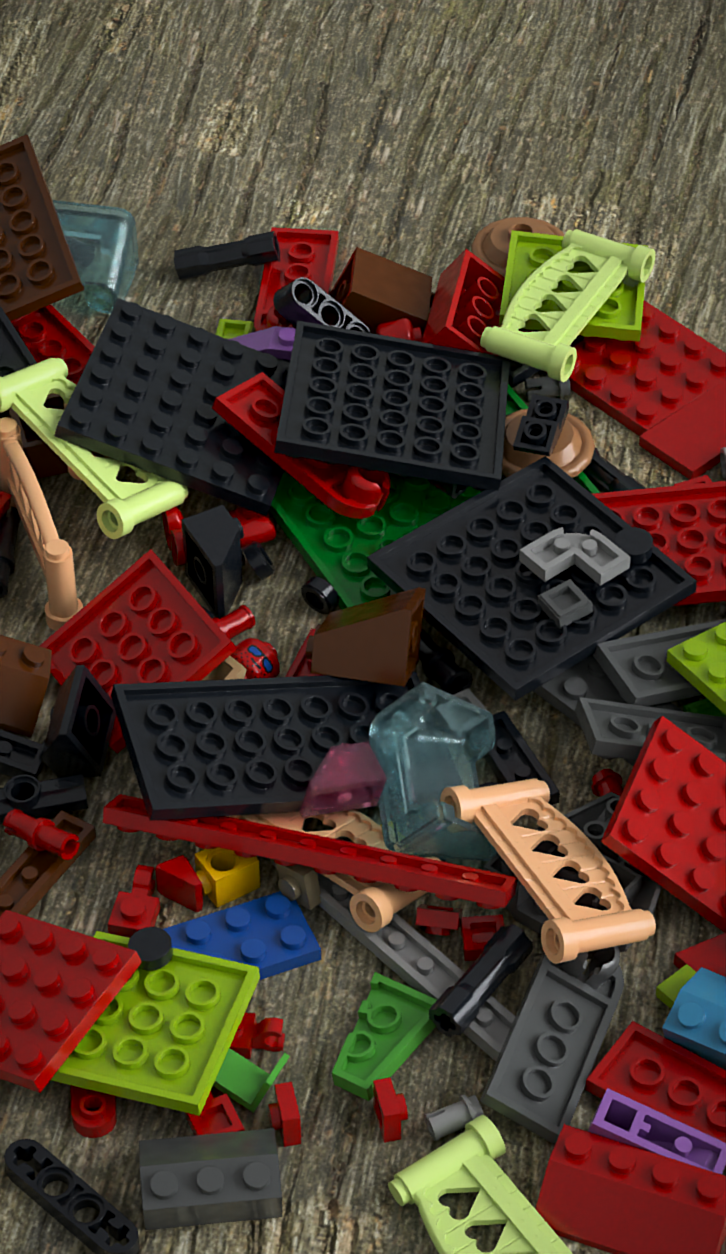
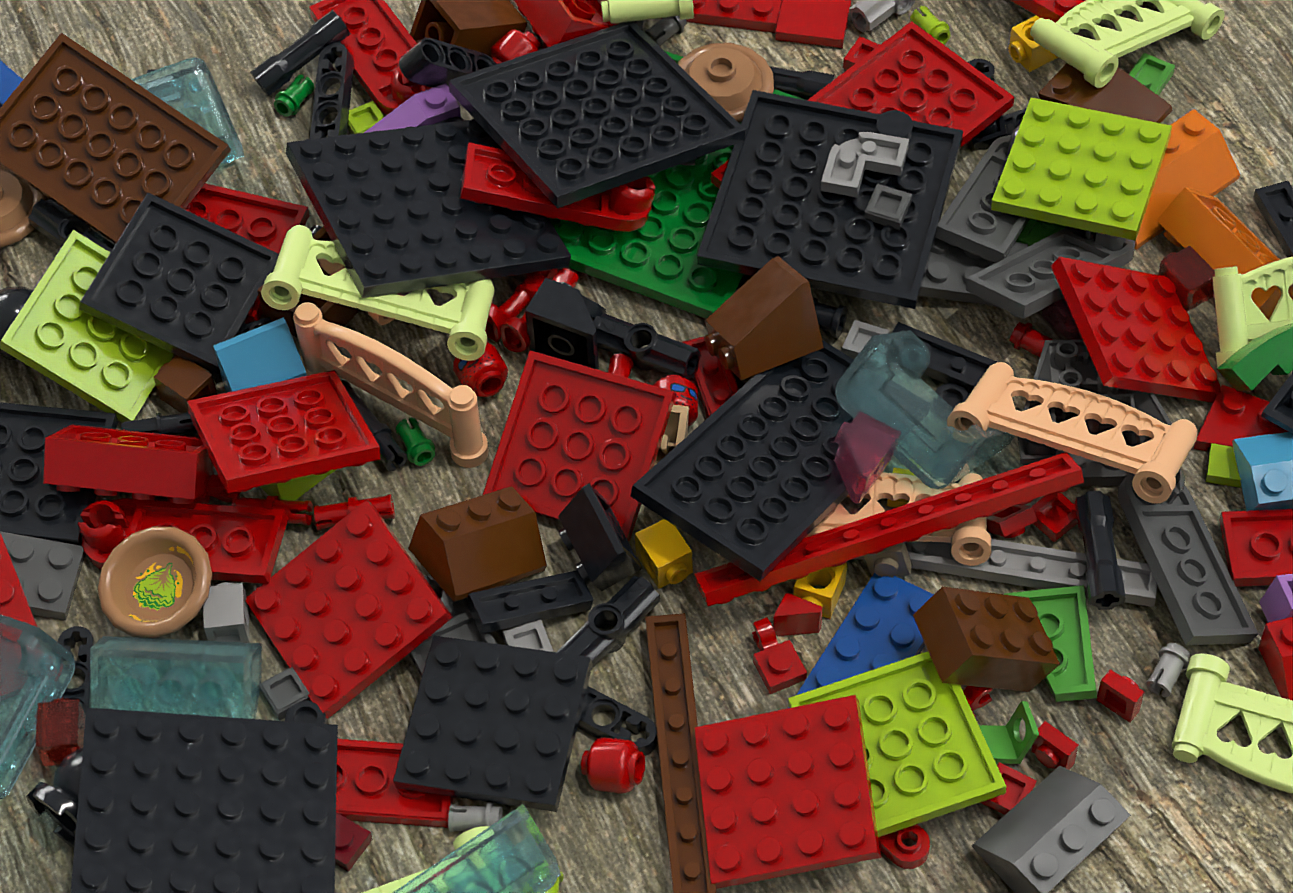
camera: 35 degrees left, 10 degrees up
(23, 590) = (419, 448): none -> green pin
(41, 834) = (658, 647): red pin -> none
(118, 773) = (664, 553): none -> yellow brick
(122, 553) = (483, 375): none -> red head
(153, 947) = (851, 680): black tile -> none
(195, 287) = (288, 101): none -> green pin
(225, 296) = (337, 102): none -> black beam
(272, 612) = (660, 354): none -> black piece
(301, 985) = (985, 639): none -> reddish brown brick
(320, 595) = (664, 309): black tile -> none
(541, 425) = (728, 65): black slope -> none

